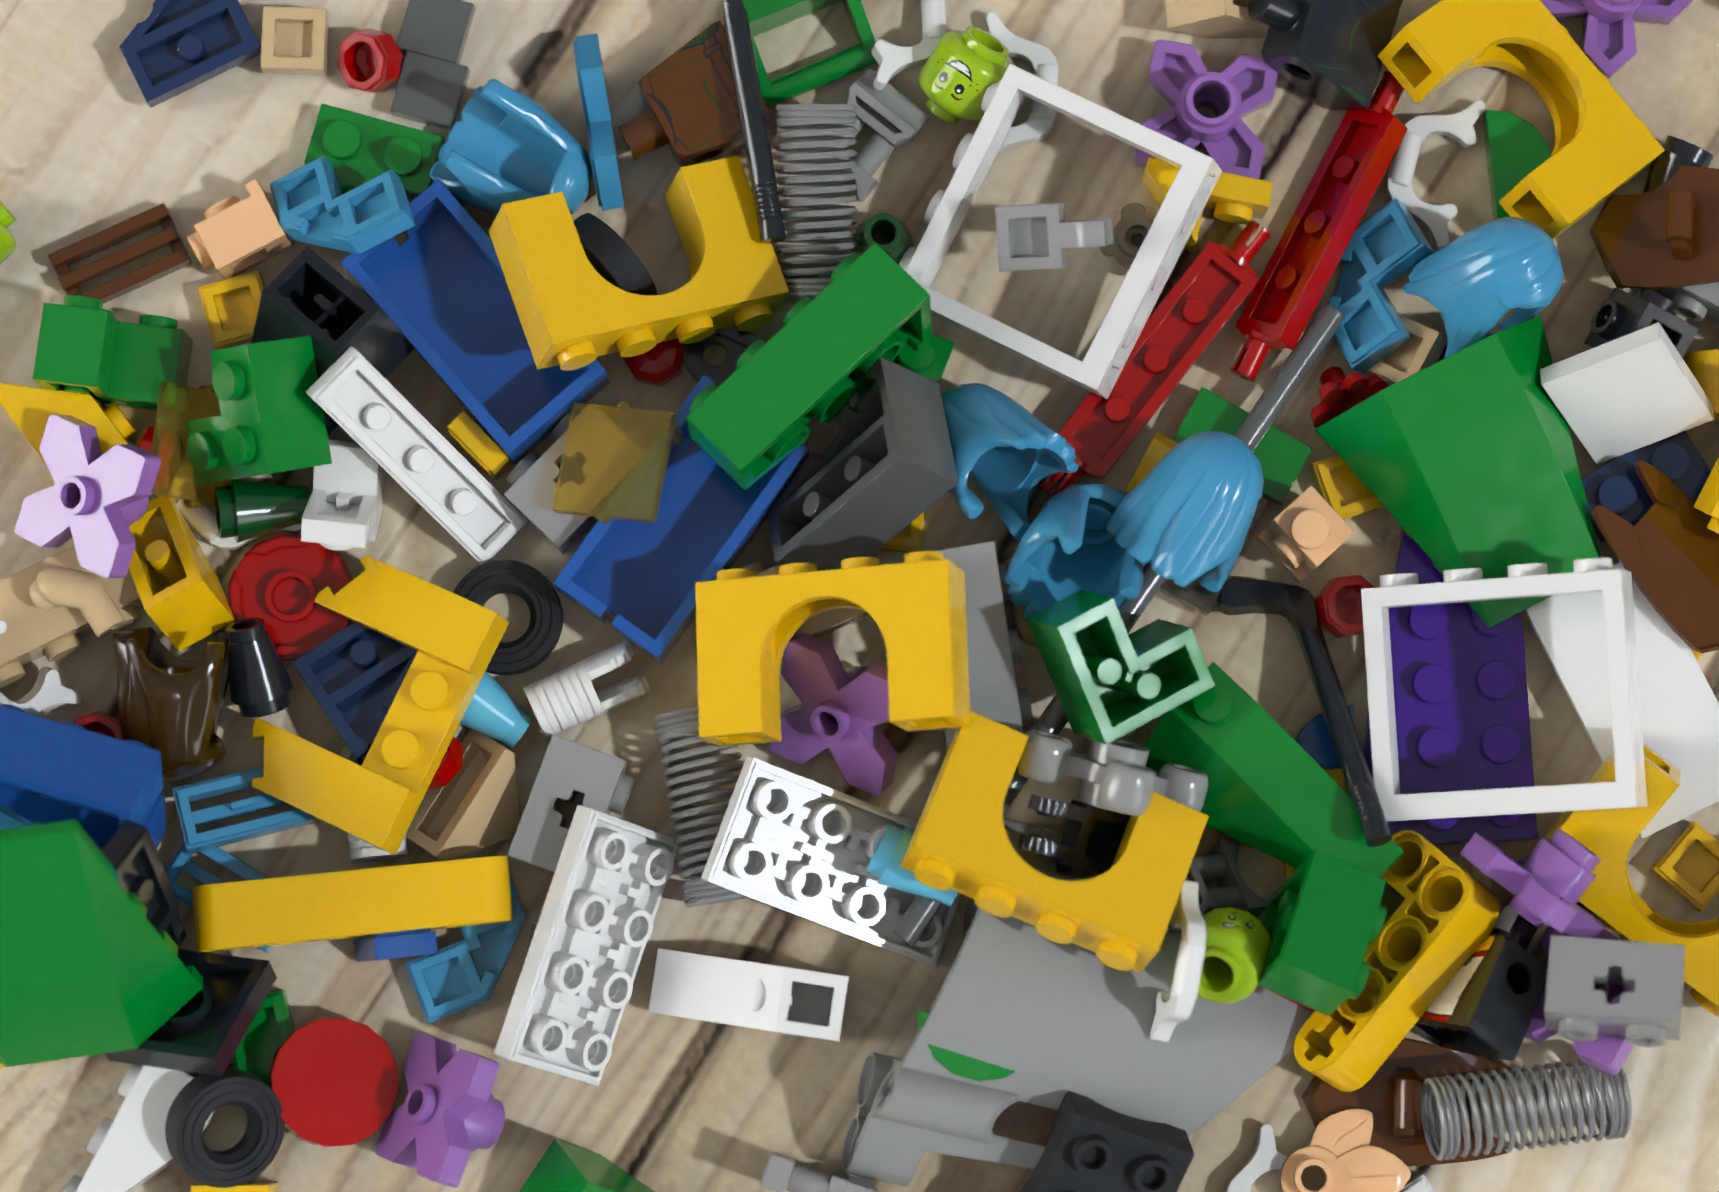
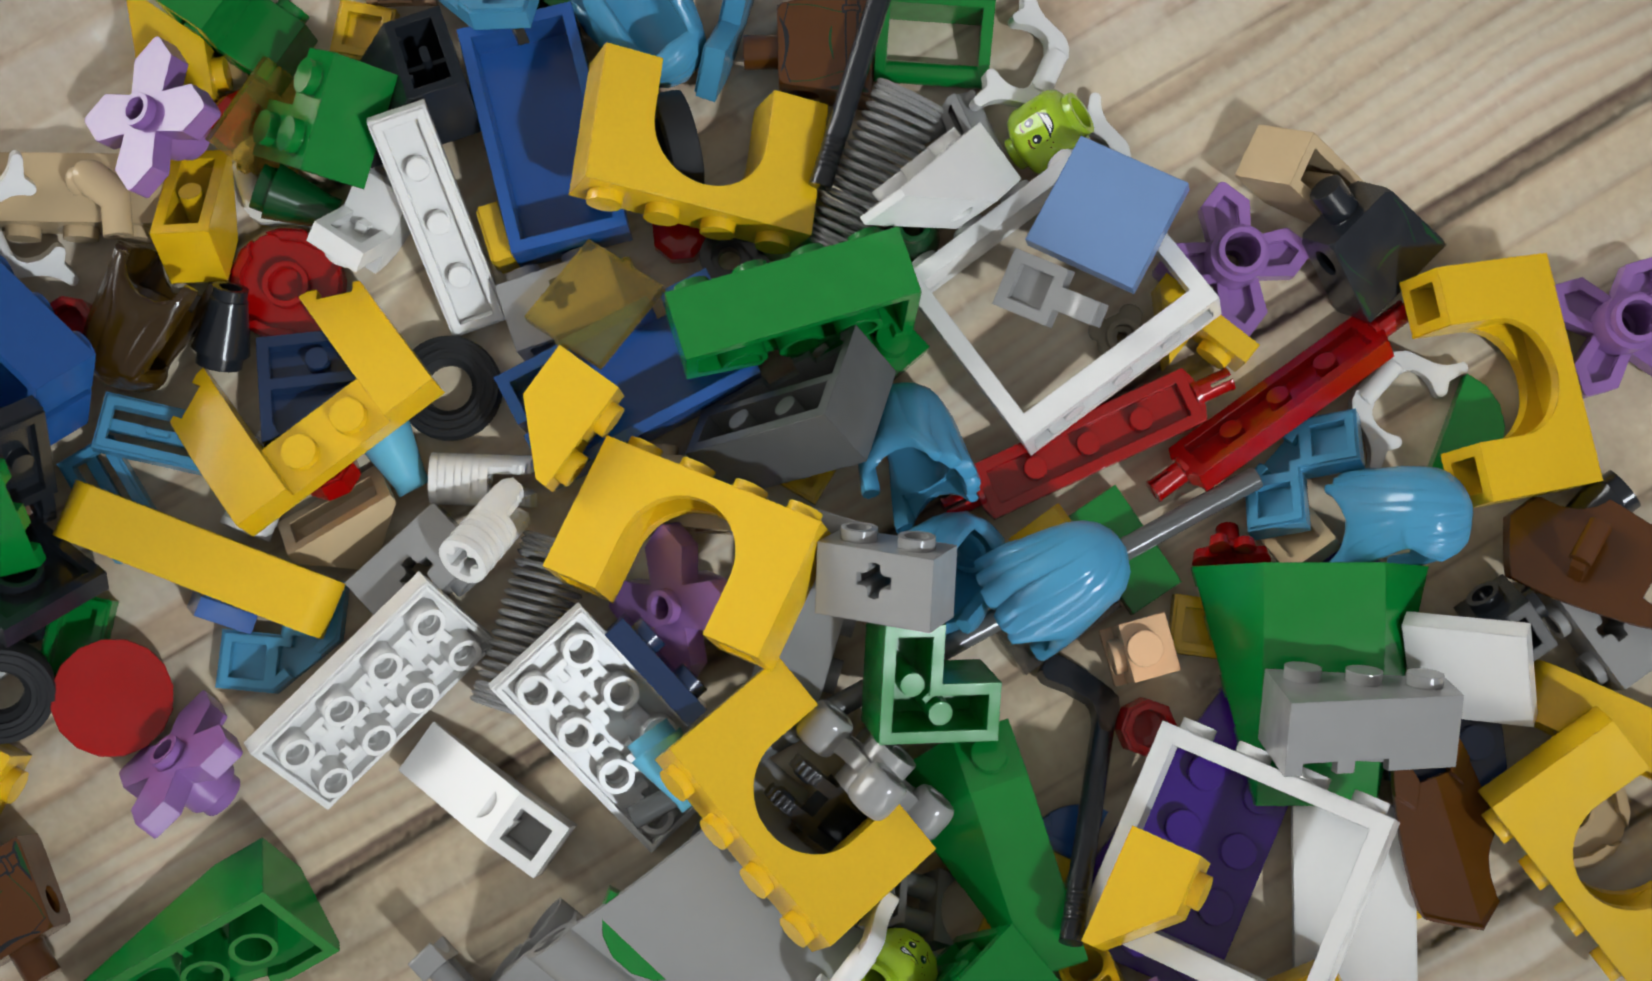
camera: 30 degrees right, 0 degrees up
(622, 736) = (485, 533): none -> white hinge
(644, 579) = (564, 413): none -> yellow slope
(832, 766) = (641, 648): none -> dark blue wing
(896, 176) = (945, 183): none -> white slope
(1013, 607) = (886, 577): none -> light grey brick
(1066, 131) = (1107, 214): none -> medium blue tile
(1427, 754) = (1147, 890): none -> yellow slope
(1543, 492) = (1359, 718): none -> light grey wedge

